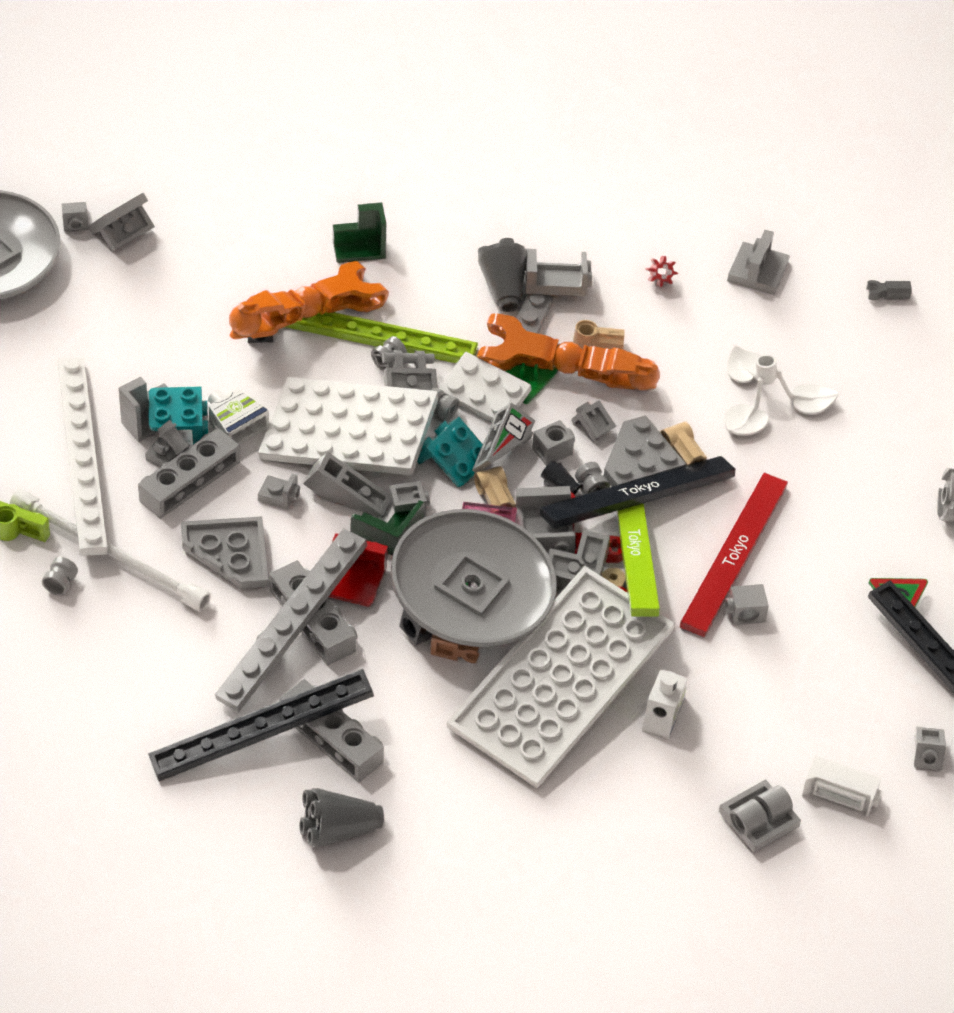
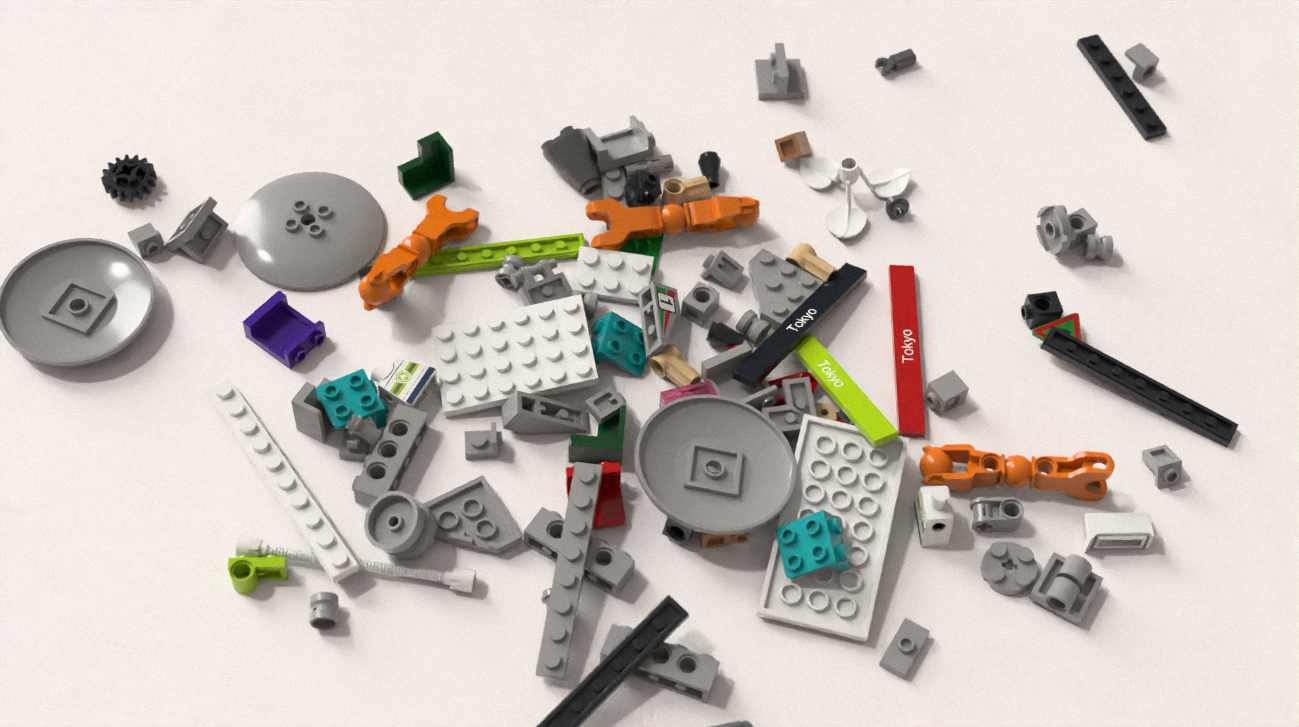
camera: 25 degrees left, 5 degrees up
(87, 157) = (129, 178): none -> black gear
(153, 333) = (283, 331): none -> dark purple panel
(161, 528) = (400, 525): none -> light grey wheel
(213, 279) = (316, 256): none -> light grey dish
(528, 678) = (812, 545): none -> teal bracket
(556, 321) = (642, 189): none -> black brick
(570, 807) = (904, 648): none -> light grey plate
(577, 305) = (650, 165): none -> light grey pin
(637, 324) = (710, 165): none -> black cone
(661, 277) = (698, 113): gear -> none
(715, 764) = (1009, 553): none -> light grey plate
(731, 728) = (994, 514): none -> light grey piece
(732, 332) = (792, 146): none -> medium nougat panel
(799, 707) = (1062, 473): none -> orange piece
(807, 417) = (896, 206): none -> dark grey plate
(893, 562) = (1041, 309): none -> black brick

